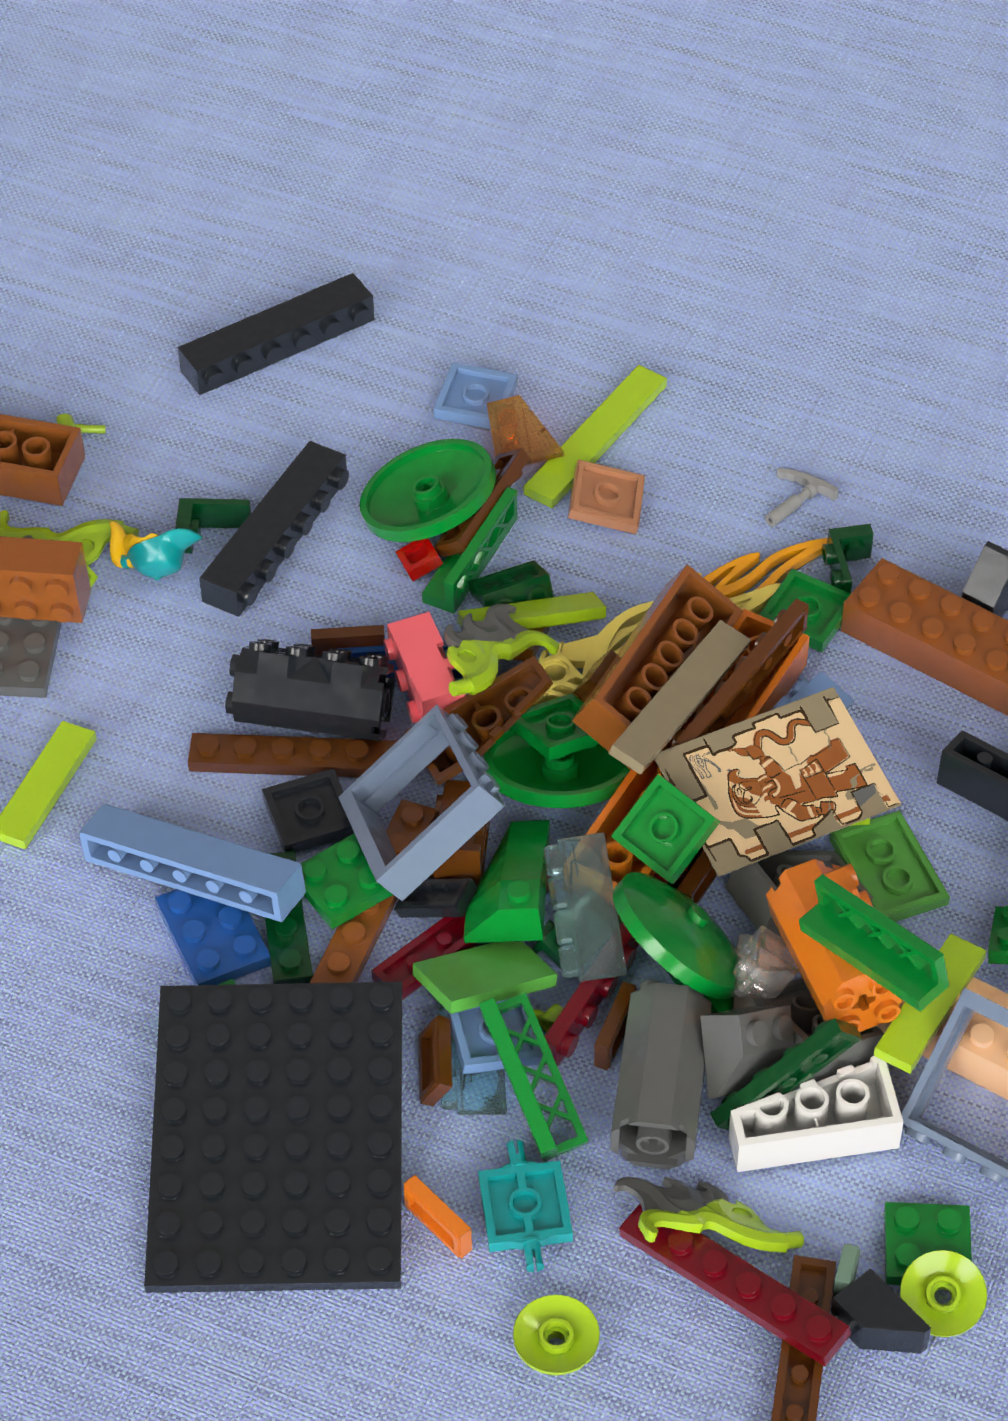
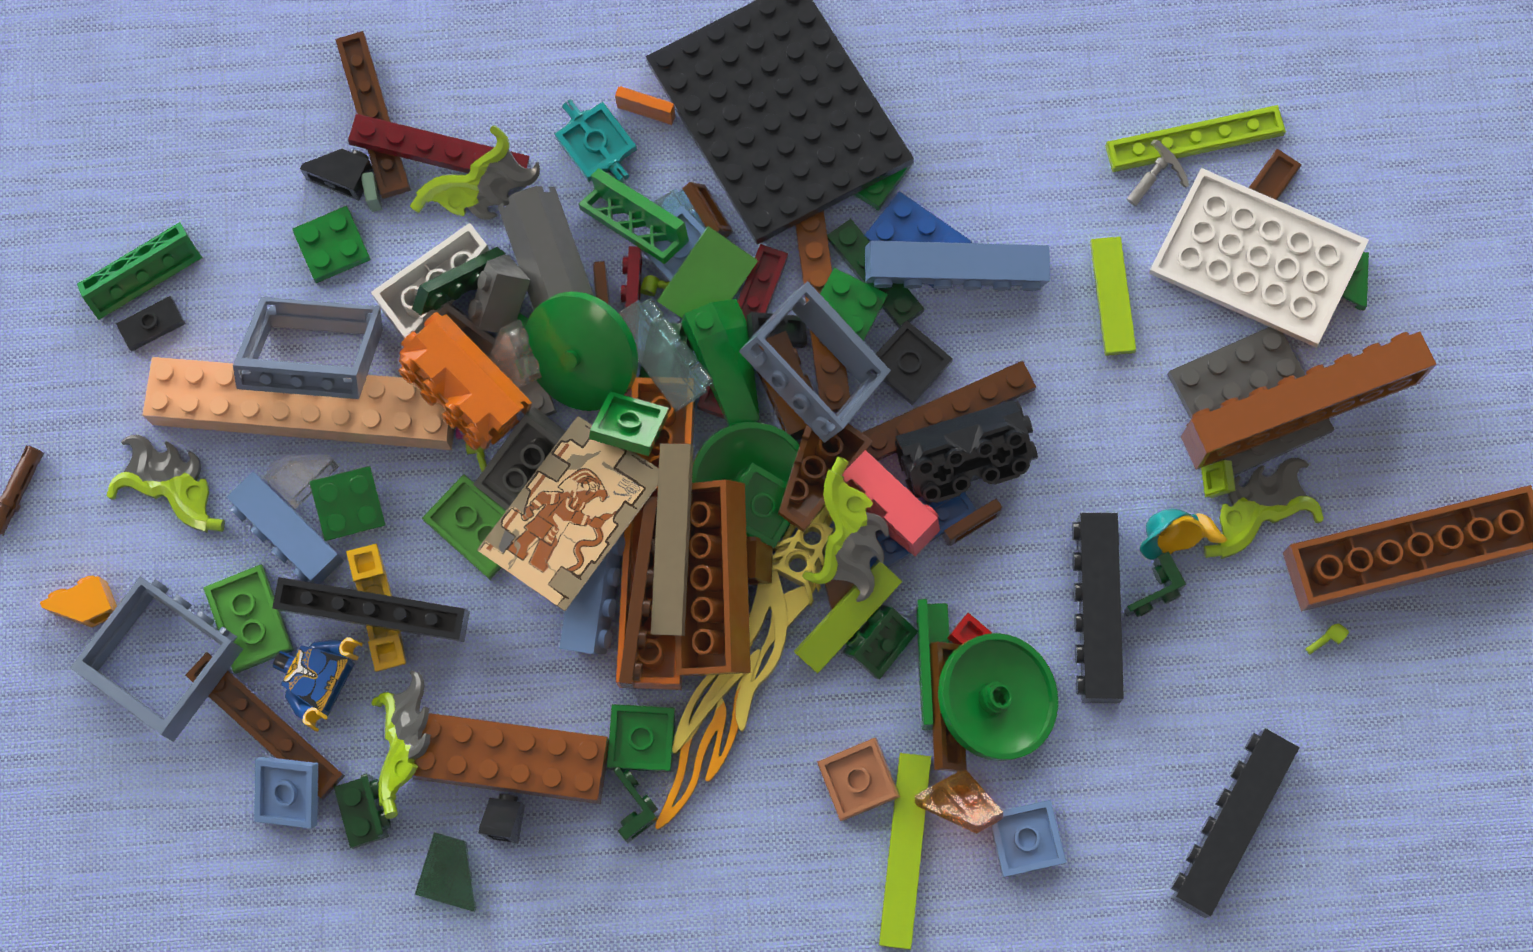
camera: 155 degrees right, 25 degrees up
(556, 1318) = (529, 54): lime dish -> none
(812, 486) = (706, 859): light grey piece -> none
(875, 945) = (418, 344): green fence -> none
(914, 1030) = (385, 388): lime tile -> none
(945, 1272) = (304, 205): lime dish -> none

